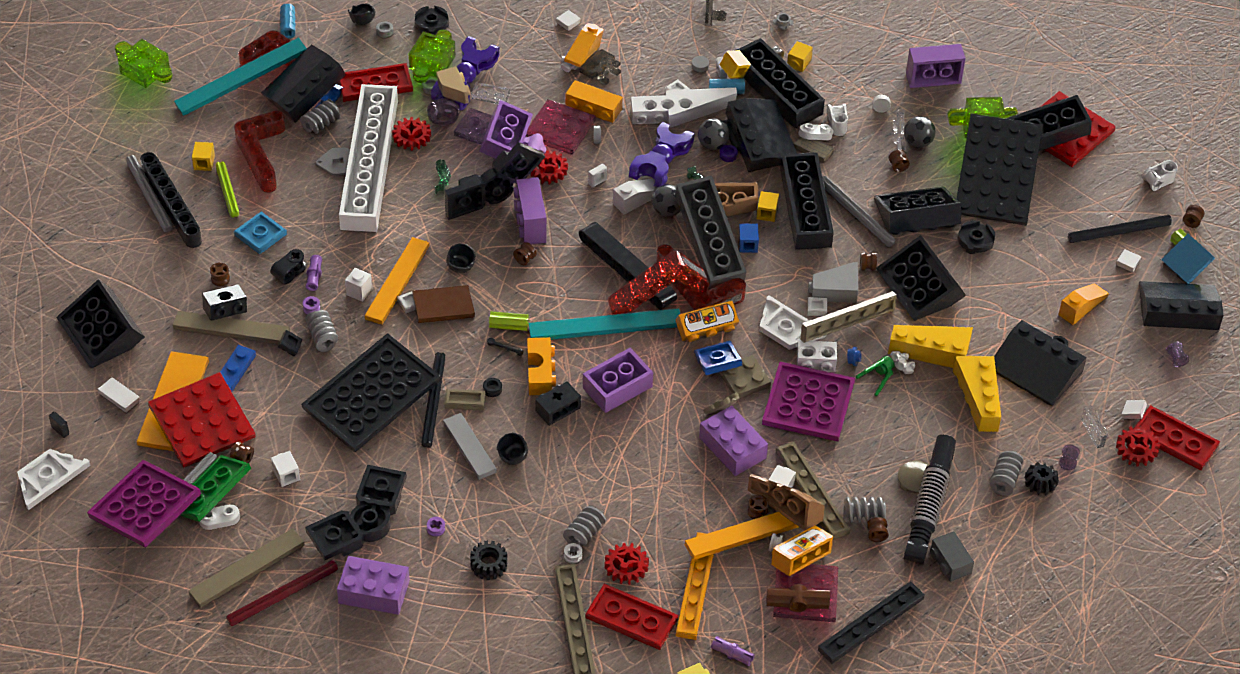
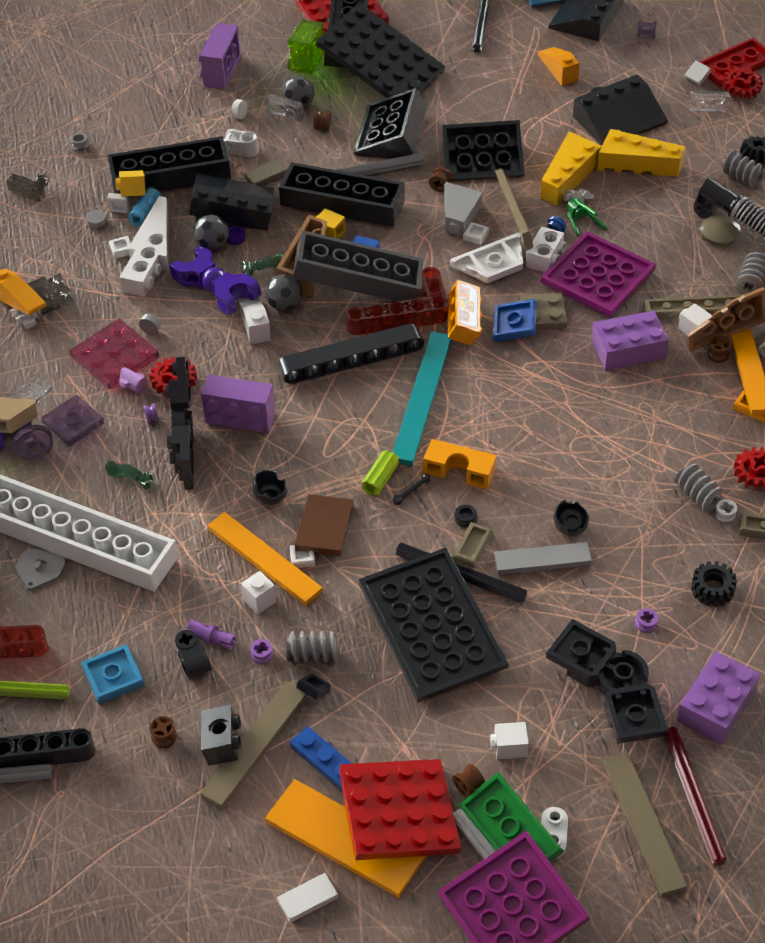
camera: 65 degrees left, 0 degrees up
(100, 325) = (181, 891): black slope -> none
(411, 133) = (46, 477): red gear -> none
(505, 129) = (108, 391): medium lavender brick -> none
(524, 253) = (289, 431): reddish brown wheel -> none
(558, 403) = (518, 463): black brick -> none
(594, 101) = (98, 312): light orange brick -> none
(597, 175) = (210, 340): white tile -> none
(617, 380) = (514, 403): medium lavender brick -> none
(655, 279) = (412, 299): clear red beam -> none
(721, 404) = (581, 333): dark tan dish -> none
(800, 56) = (138, 139): yellow brick -> none
(815, 132) = (249, 163): white plate -> none
(976, 245) = (453, 106): black plate -> none
(1070, 454) = (738, 126): clear purple bush -> none
(1128, 260) = (521, 23): white tile -> none

